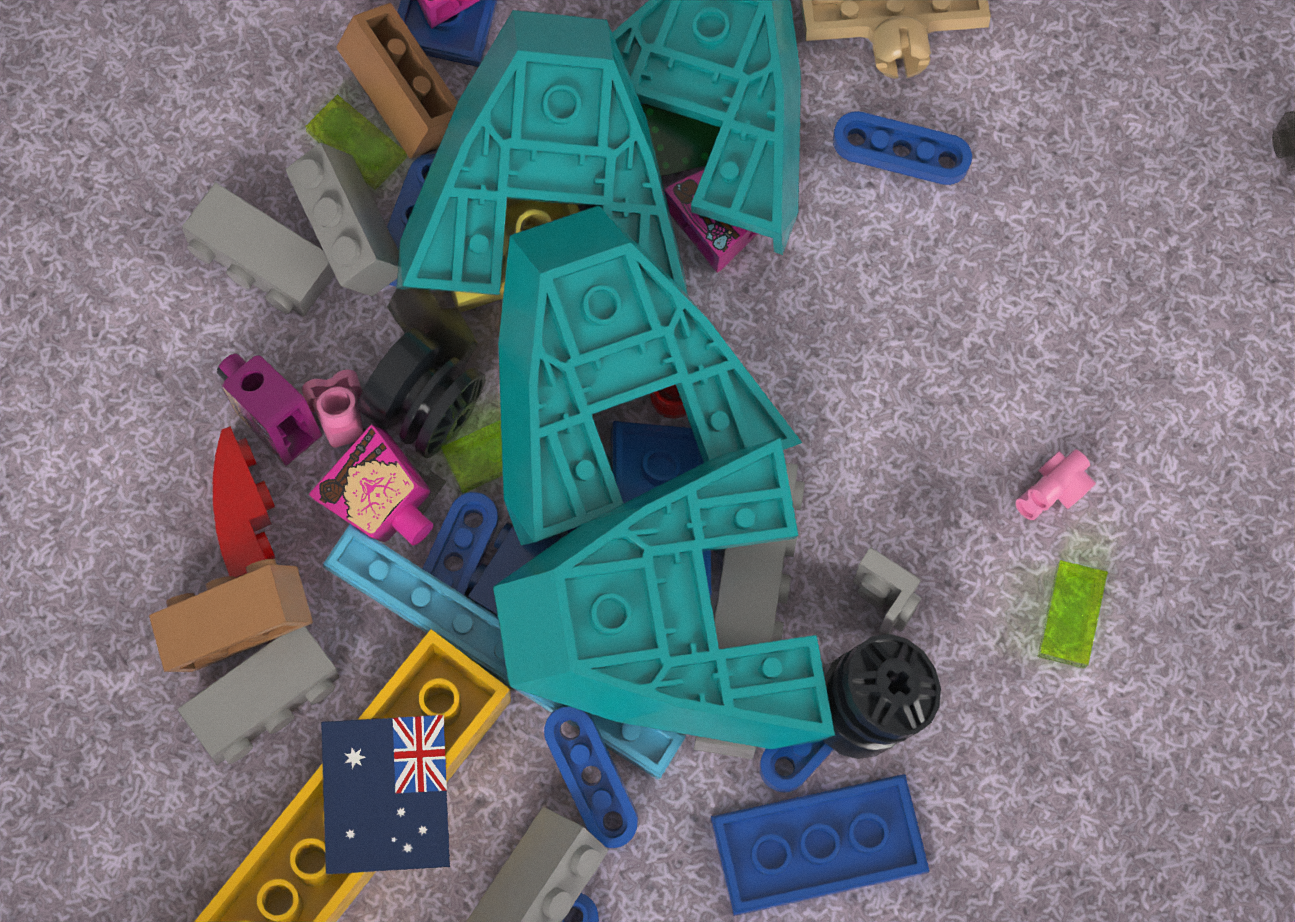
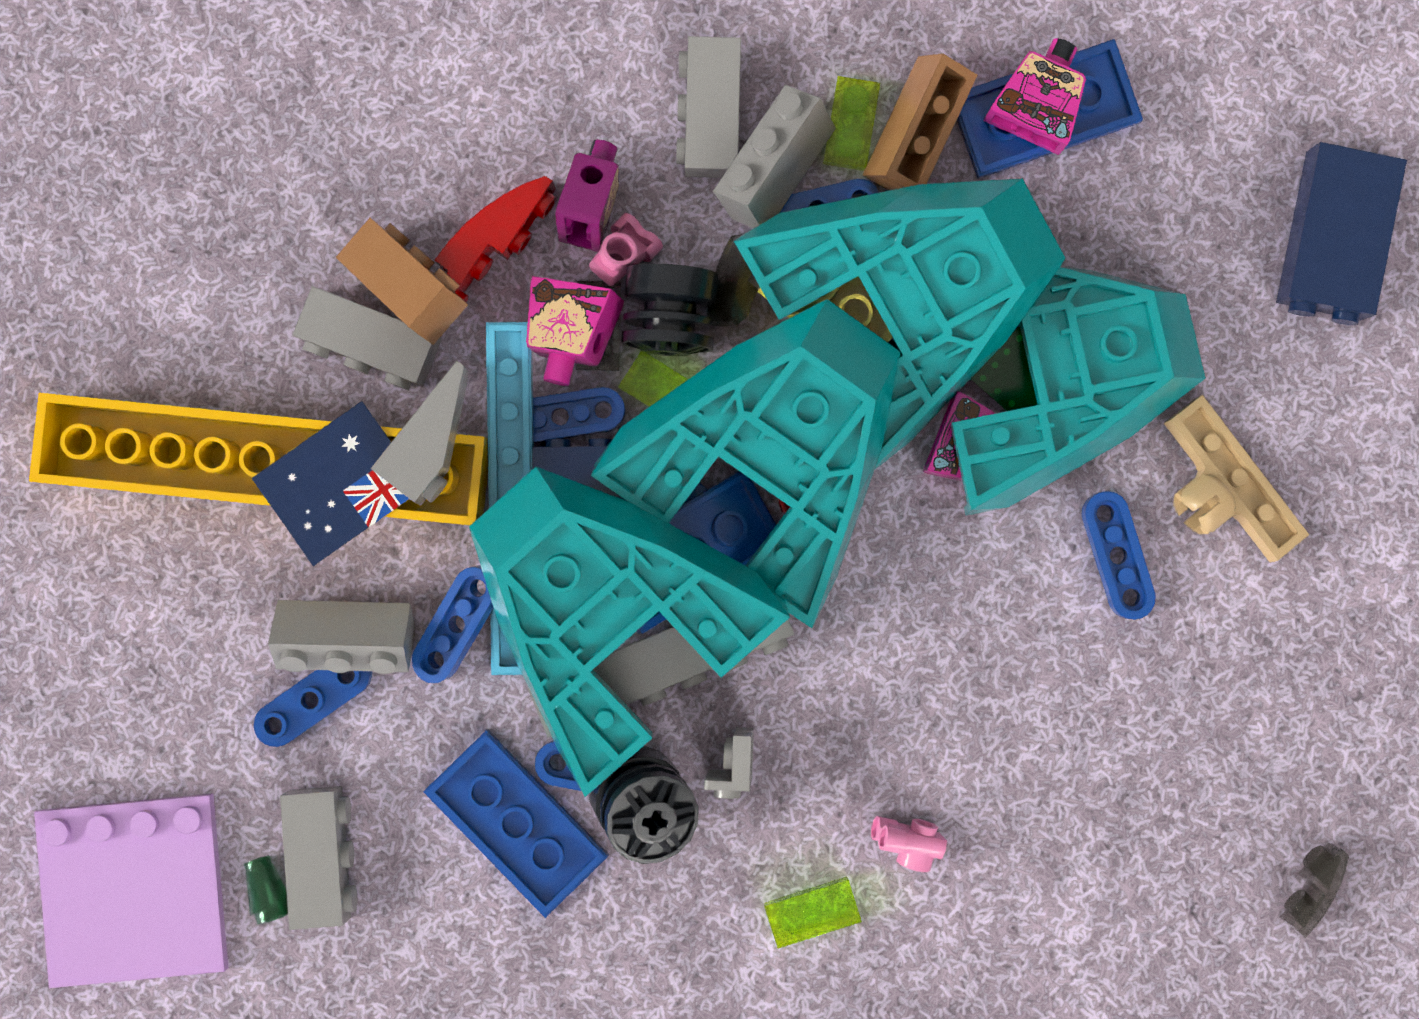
camera: 65 degrees right, 15 degrees up
(407, 679) = (425, 445): none -> light grey slope

